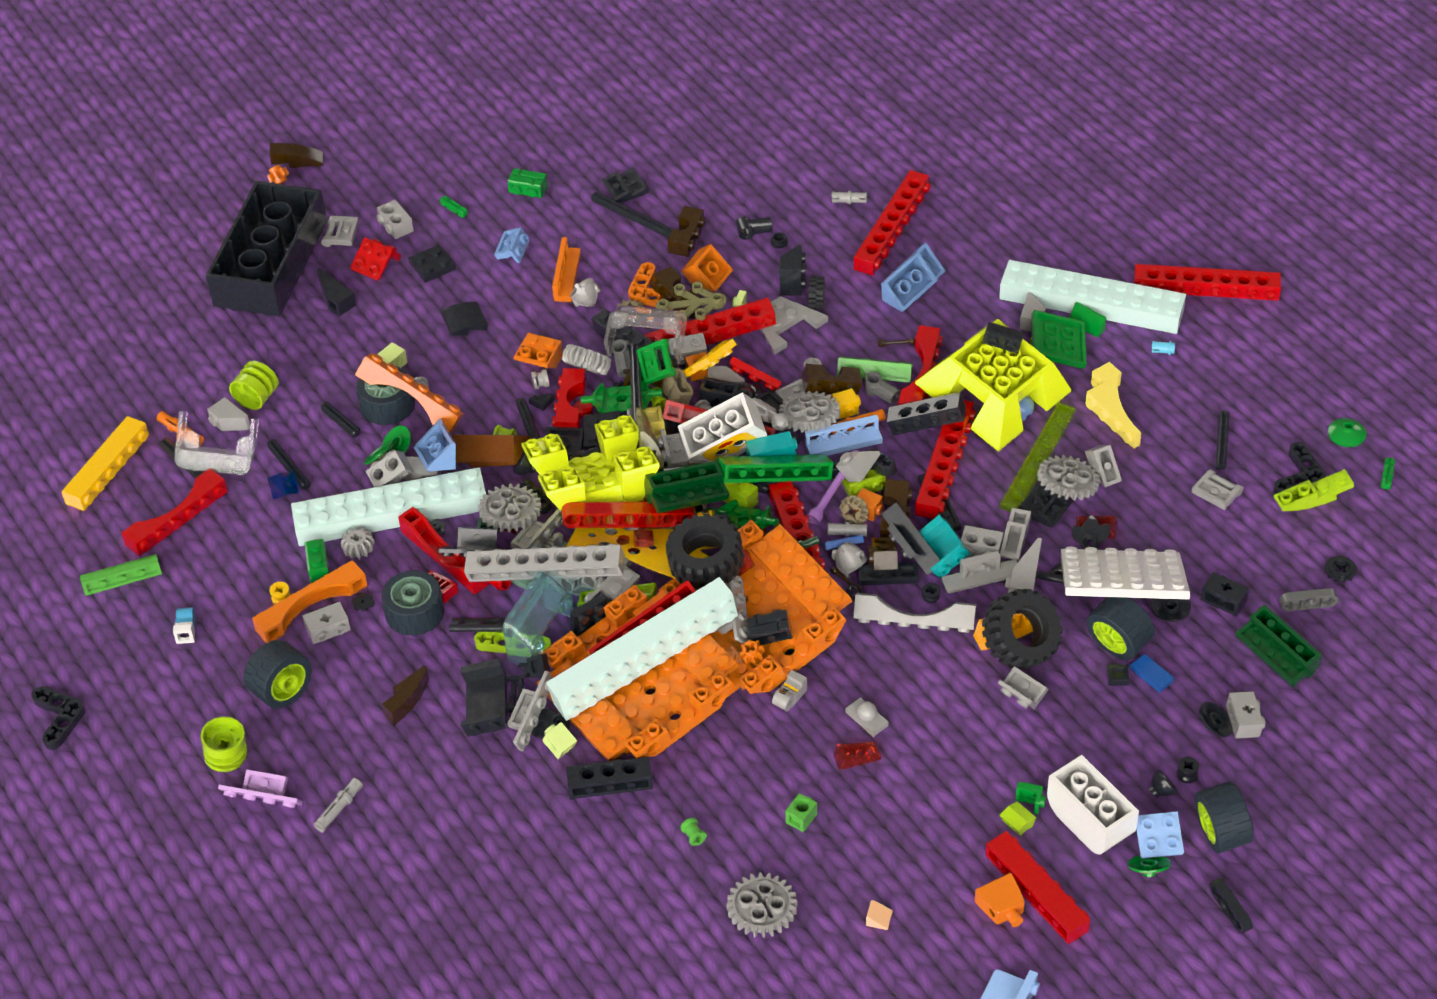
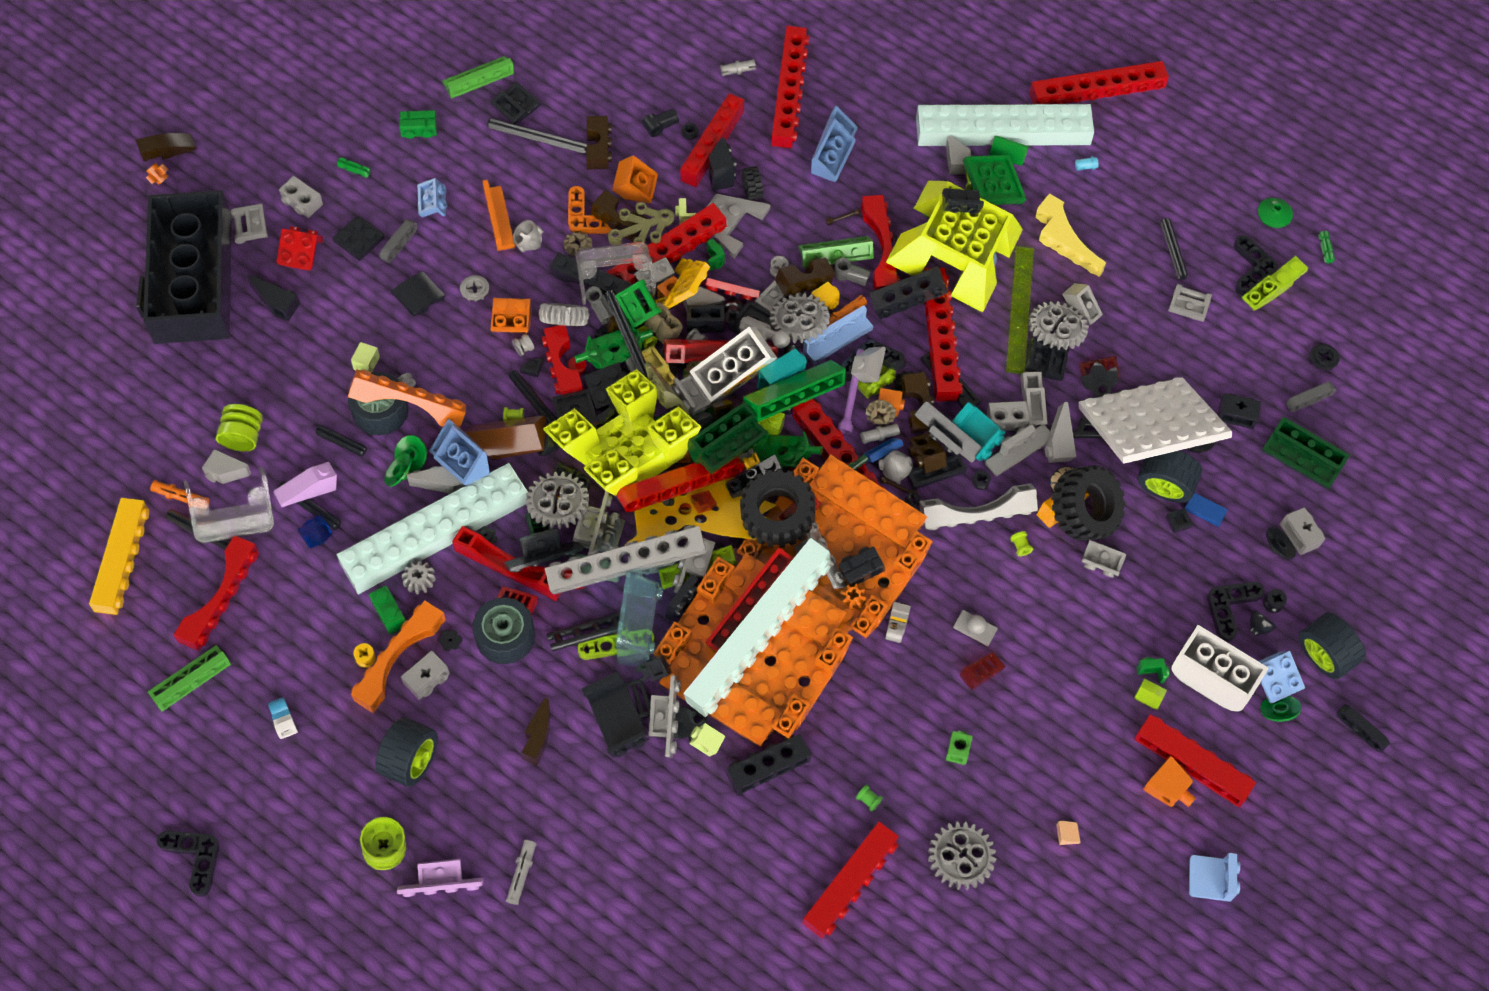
camera: 25 degrees left, 15 degrees up
(294, 444) = (308, 484): none -> lavender slope
(390, 474) = (422, 492): light grey brick -> none
(456, 277) = (398, 240): none -> dark grey beam
(513, 321) = (468, 284): none -> light grey gear
(601, 158) = (478, 76): none -> bright green fence
(643, 895) = (850, 880): none -> red brick
(755, 348) = (716, 253): none -> green bracket
(812, 239) = (719, 127): none -> red brick
(945, 653) = (1021, 543): none -> lime bush
(1137, 757) = (1224, 604): none -> black beam

